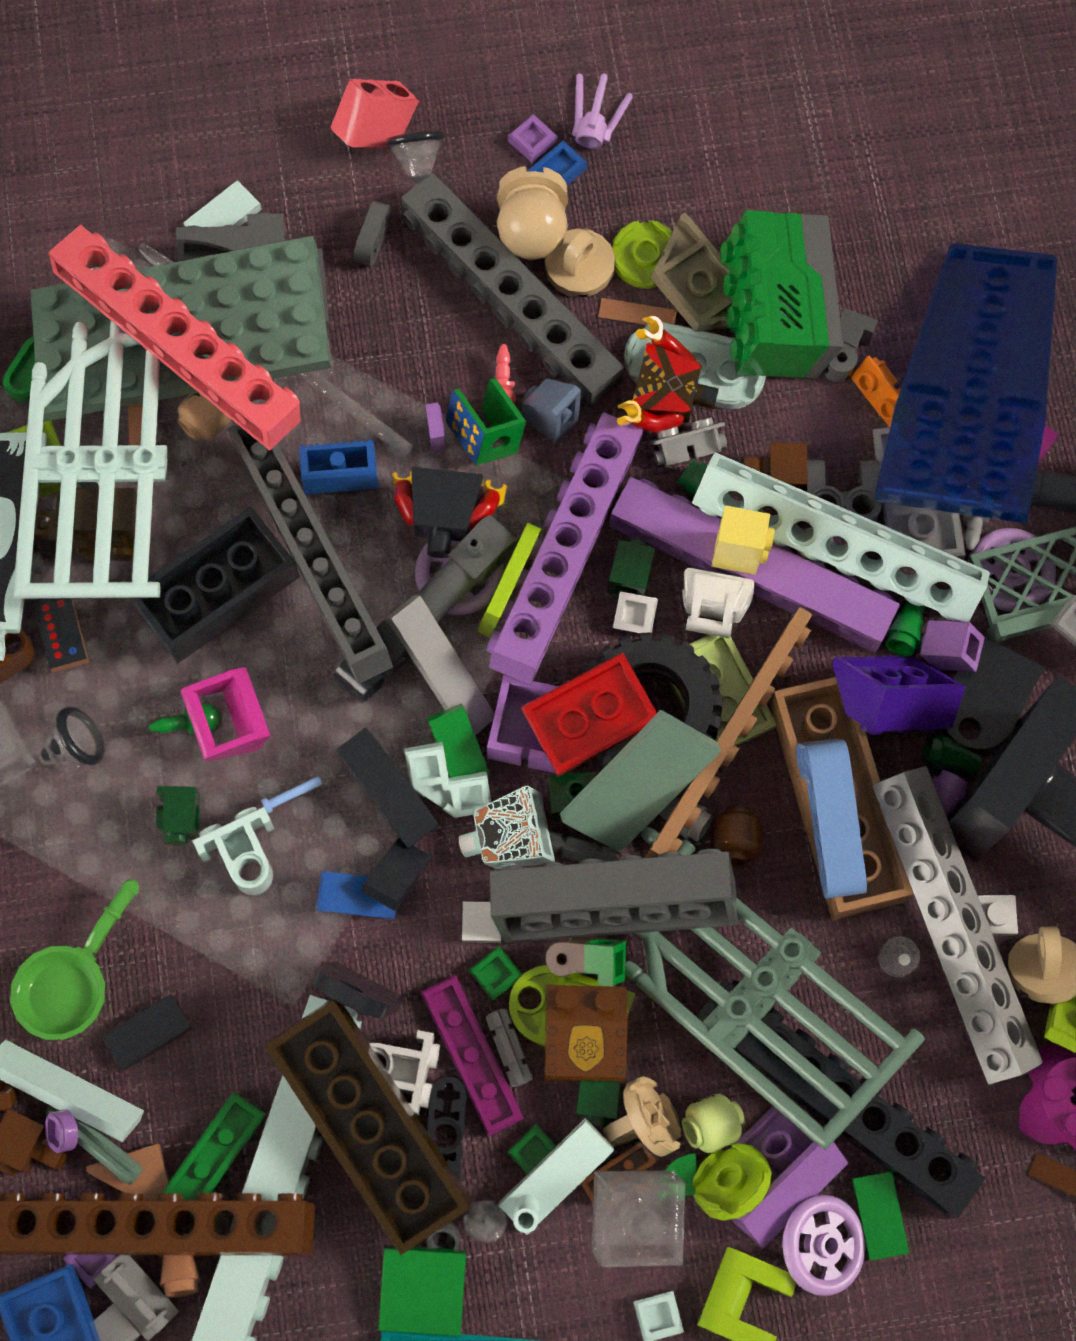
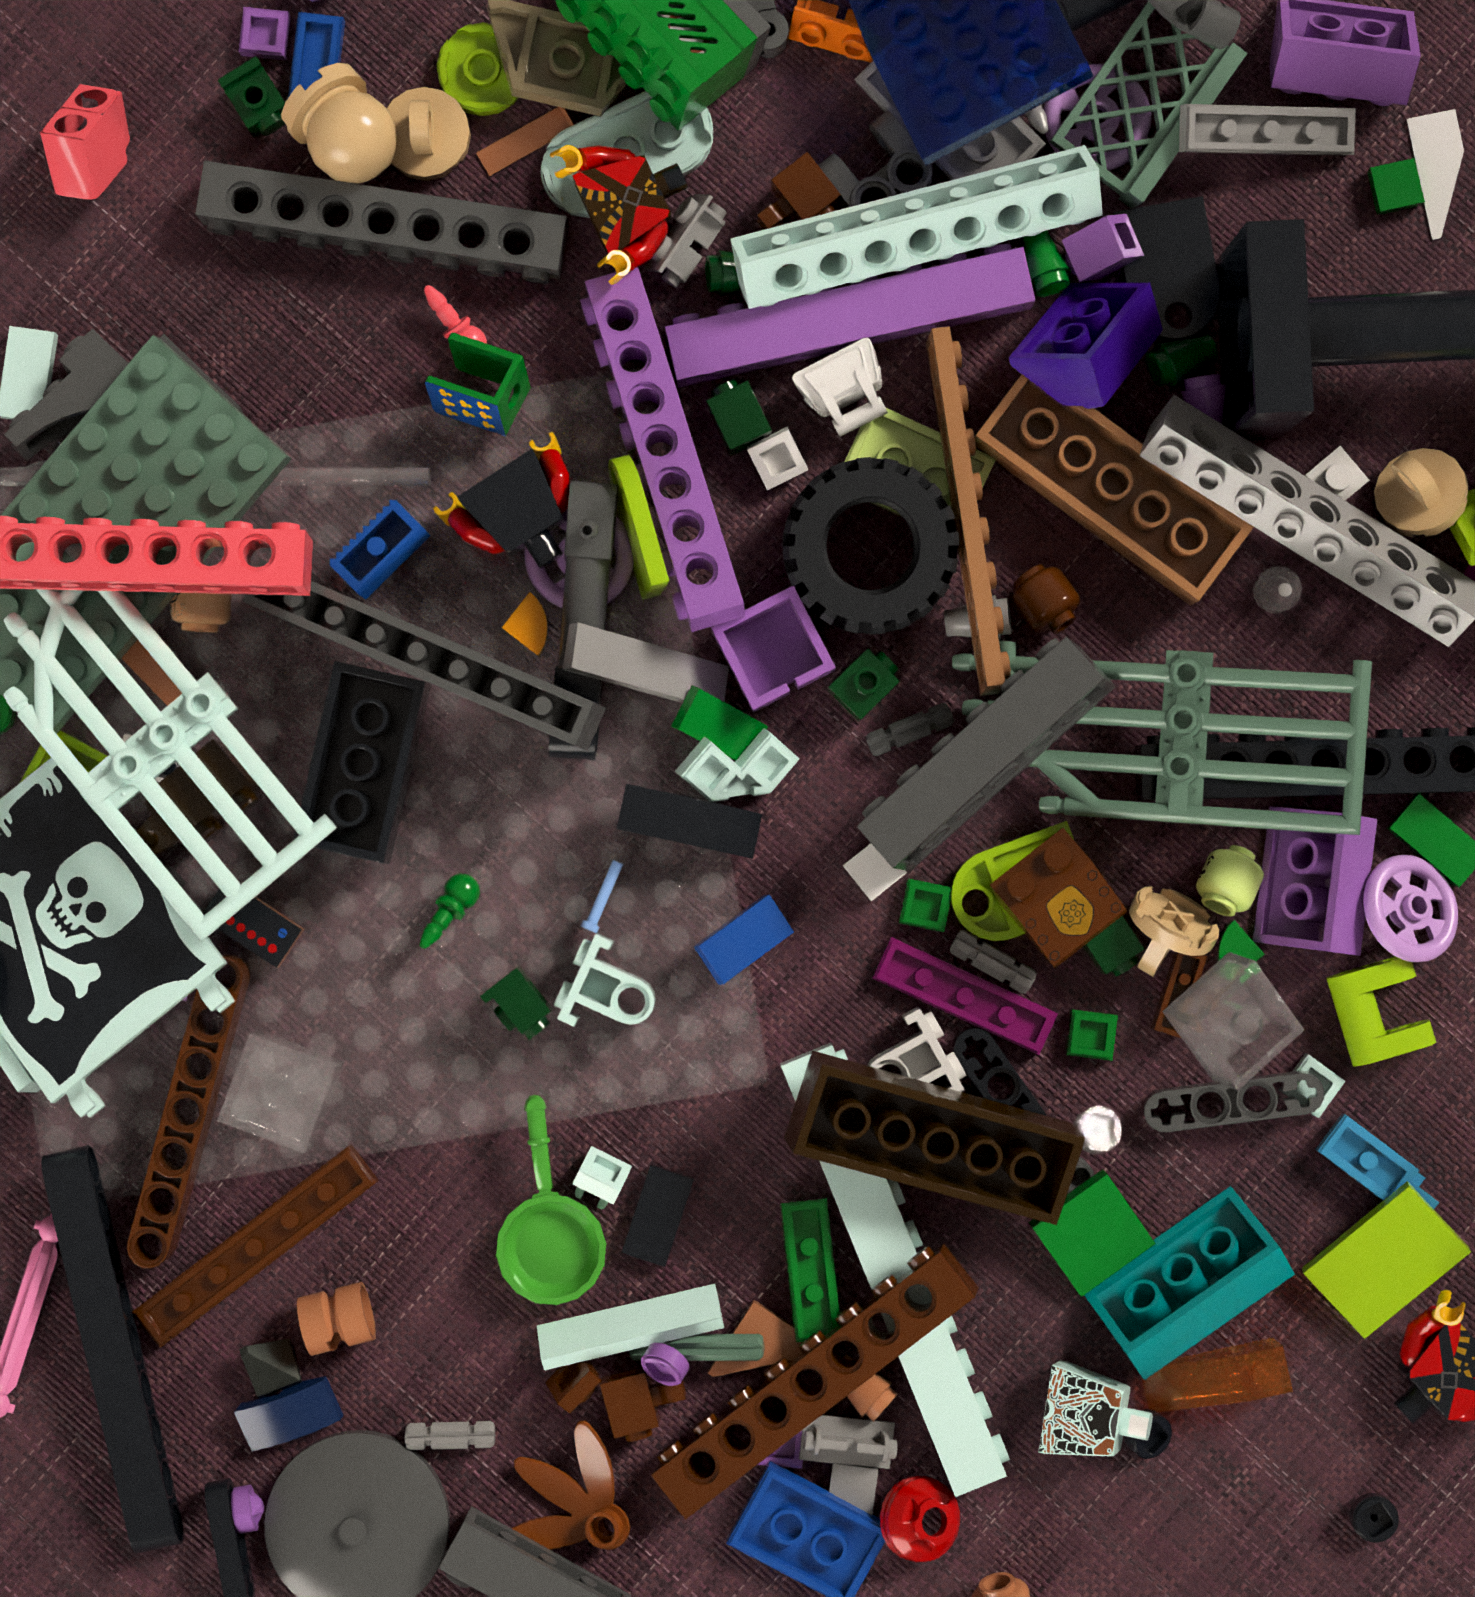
camera: 35 degrees left, 15 degrees up
(73, 740) = (361, 1015): hat -> none
(132, 973) = (601, 1176): none -> light aqua tile
(243, 710) = (492, 857): dark pink tile -> none
(356, 991) = (822, 1030): black tile -> none
(372, 233) = (195, 272): dark grey beam -> none
(392, 588) = (529, 624): none -> light orange tile
(396, 874) = (764, 892): black tile -> none
(416, 152) = (165, 149): clear hat -> none
(435, 427) = (434, 429): medium lavender tile -> none
(494, 161) = (246, 82): none -> dark green brick
(510, 831) = (836, 767): torso -> none
(552, 408) = (527, 315): sand blue slope -> none
(556, 1176) = (1130, 1044): light aqua piece -> none
(589, 714) = (827, 602): red tile -> none
(589, 956) = (1003, 826): leg -> none
(592, 1282) = (1234, 1108): none -> dark grey beam
(640, 781) = (924, 627): sand green tile -> none
(732, 1182) = (1290, 934): lime tile -> none
(742, 540) = (832, 312): light yellow brick -> none
(834, 816) = (1096, 483): medium blue beam -> none

